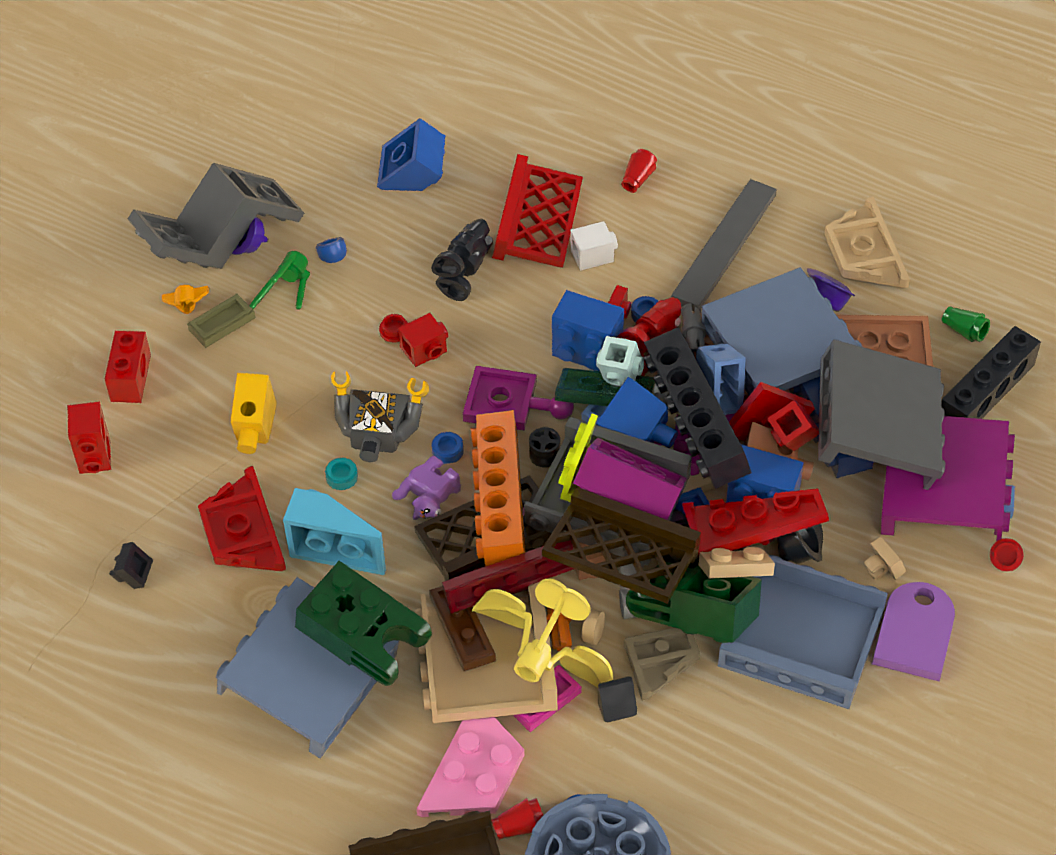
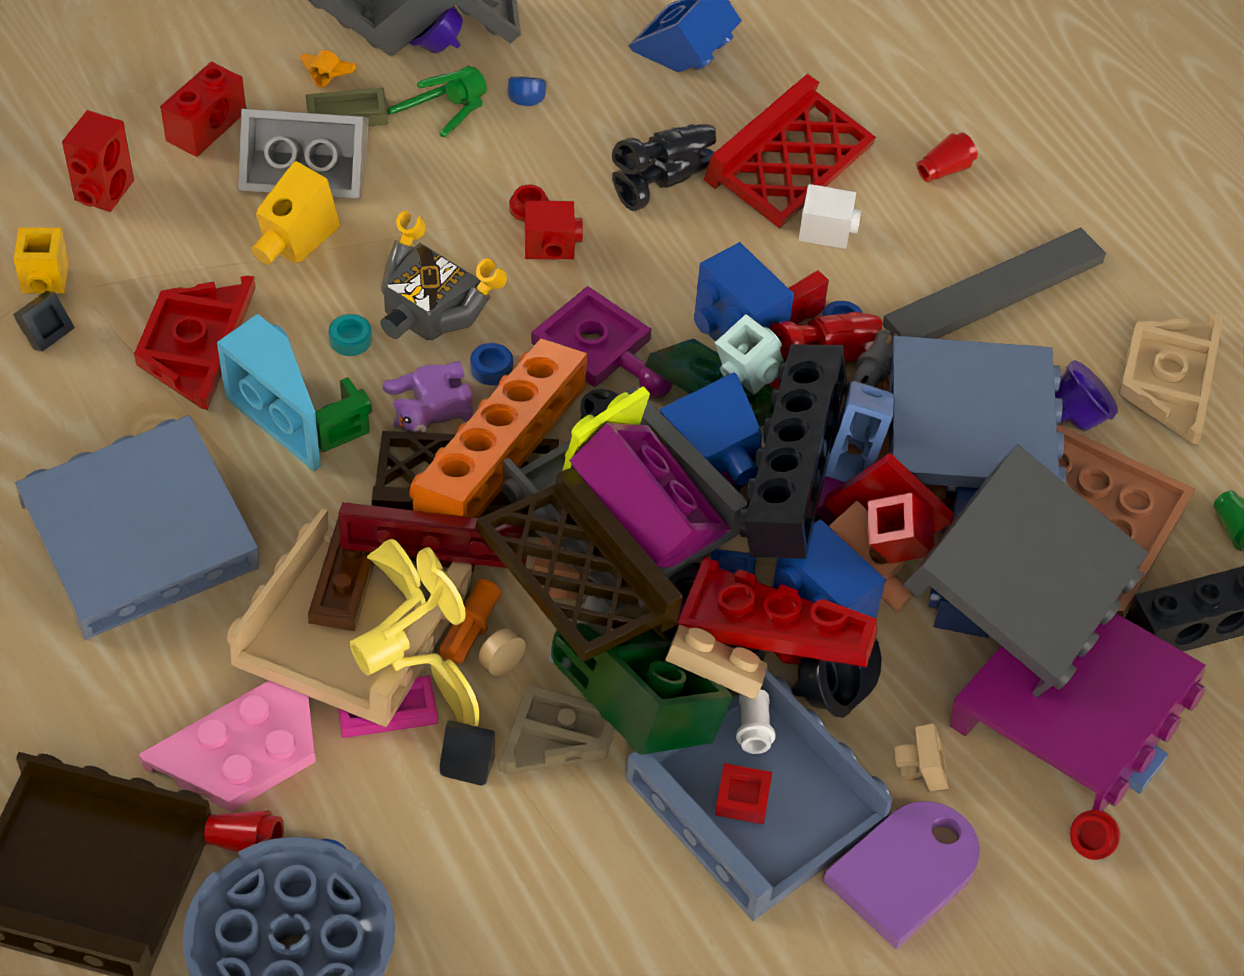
camera: 25 degrees right, 0 degrees up
(102, 525) = (41, 259): none -> yellow brick
(209, 365) = (323, 142): none -> light grey slope
(357, 620) = (213, 496): dark green brick -> none
(386, 521) = (345, 419): none -> green bracket
(780, 595) = (755, 729): none -> white pin
(797, 636) = (743, 793): none -> red plate

